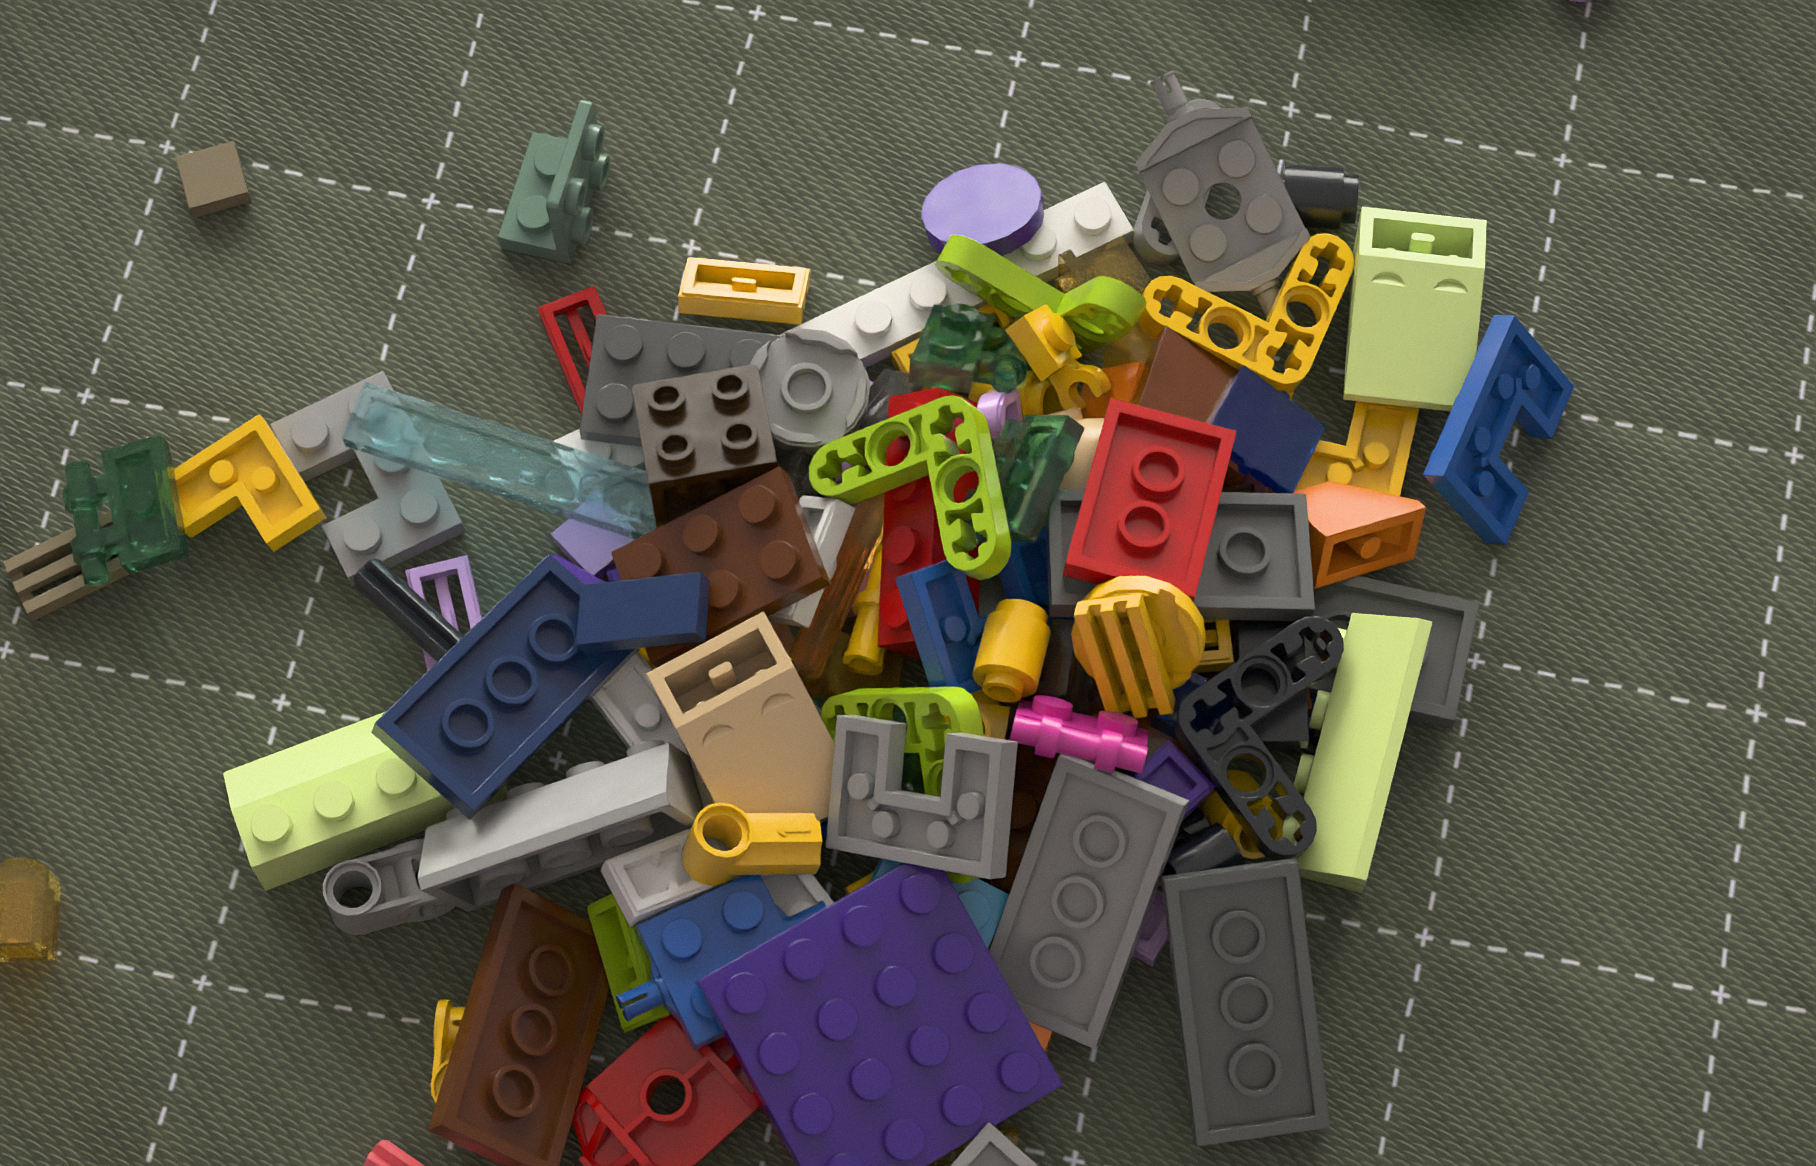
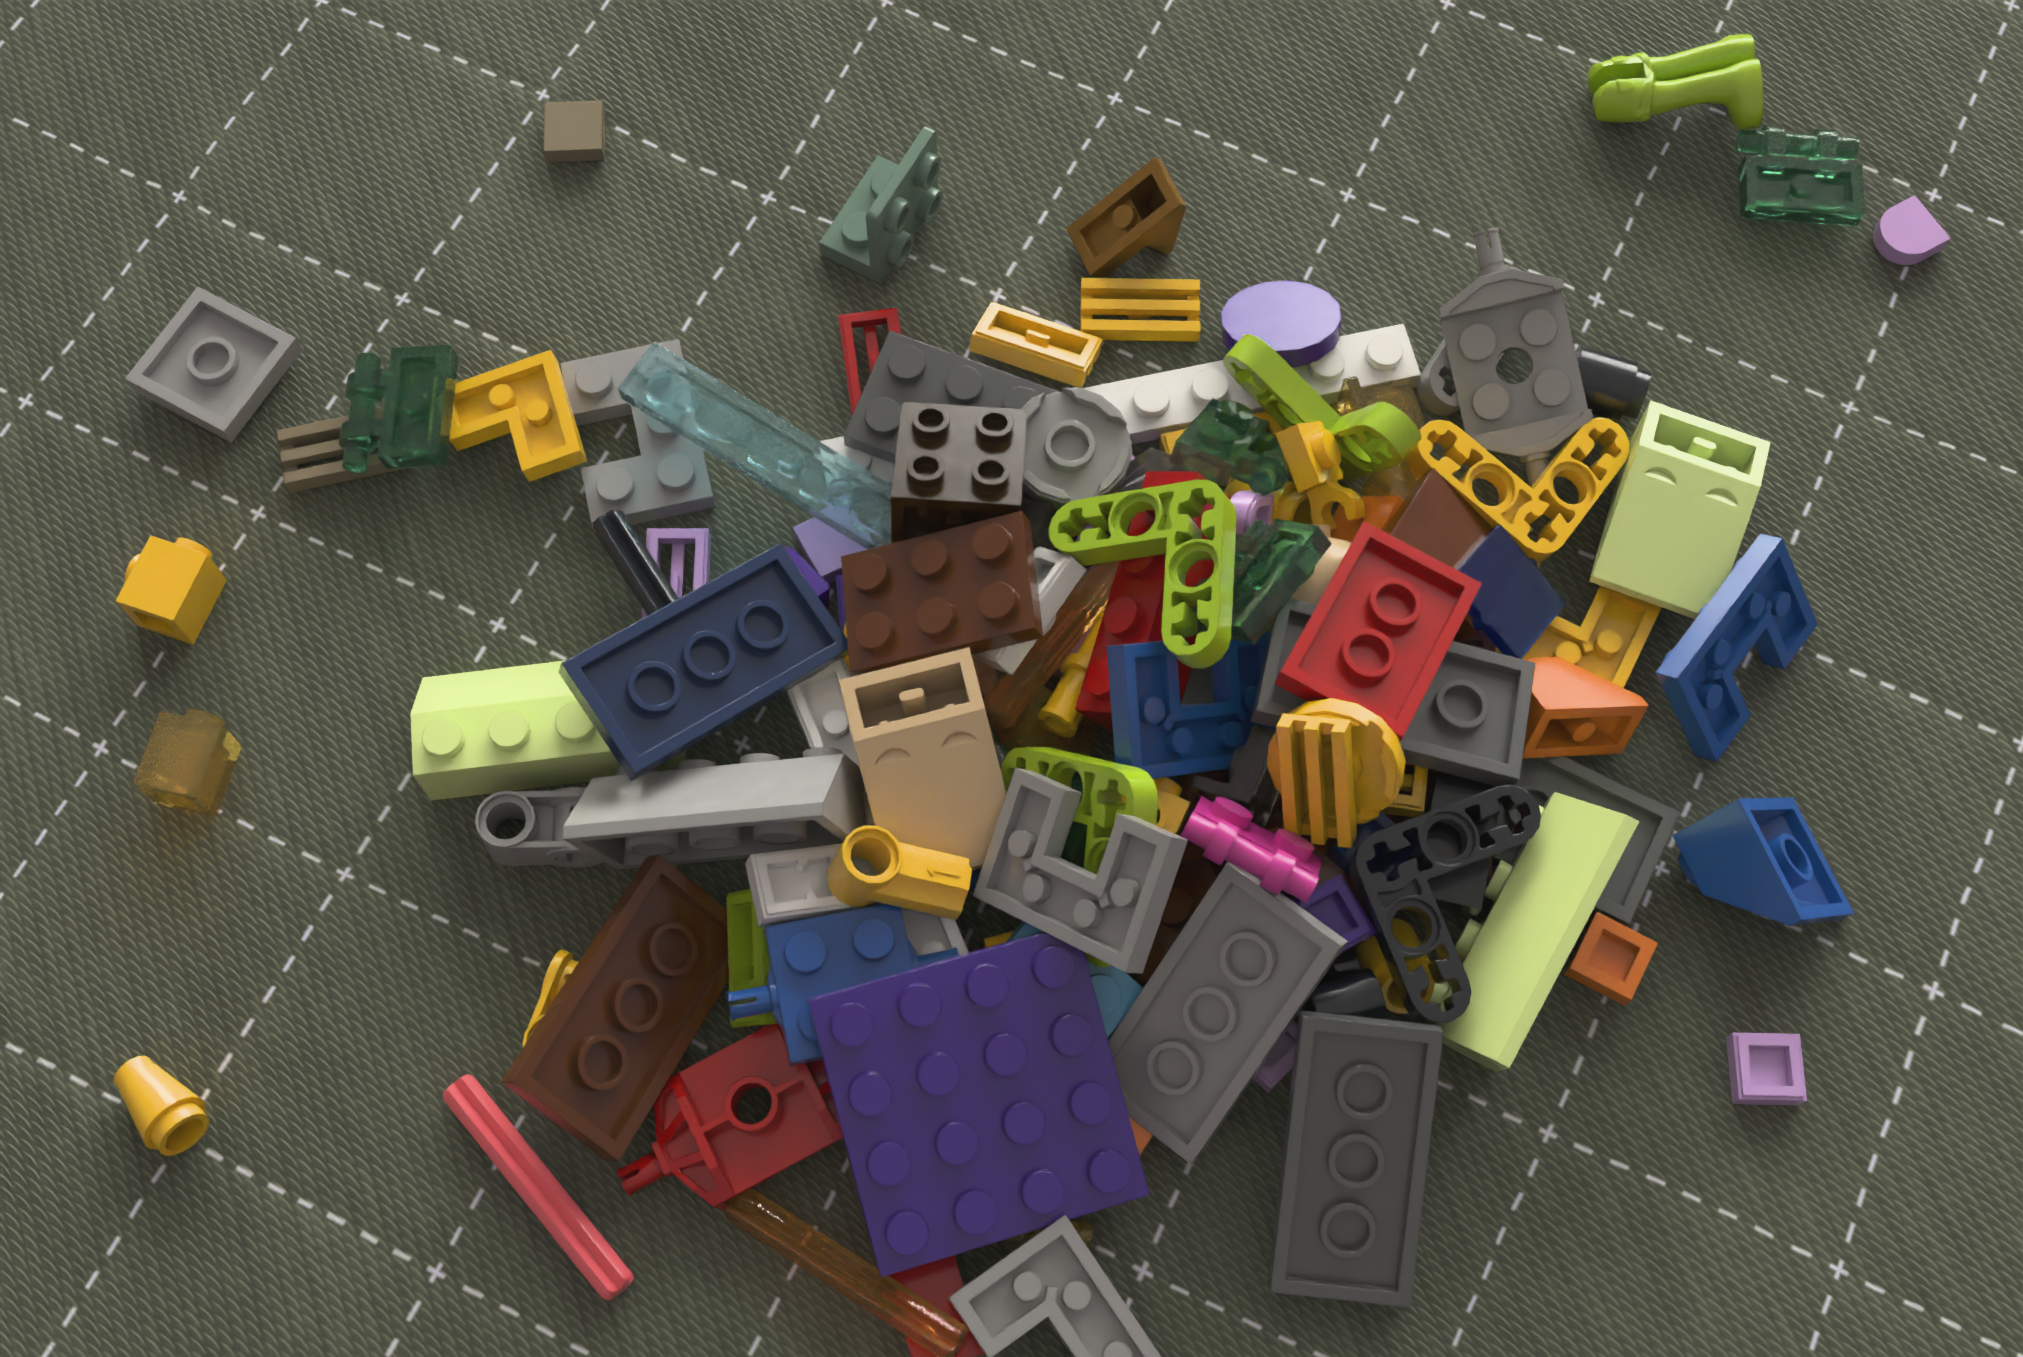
camera: 10 degrees right, 0 degrees up
(643, 612) = (853, 620): dark blue tile -> none
(807, 138) = (1134, 215): none -> pearl gold slope
(838, 219) = (1140, 301): none -> yellow tile
(1012, 650) = (1205, 746): yellow brick -> none
(1445, 758) = (1611, 958): none -> orange plate
(1568, 630) = (1762, 861): none -> blue slope
(1614, 825) = (1766, 1069): none -> lavender tile

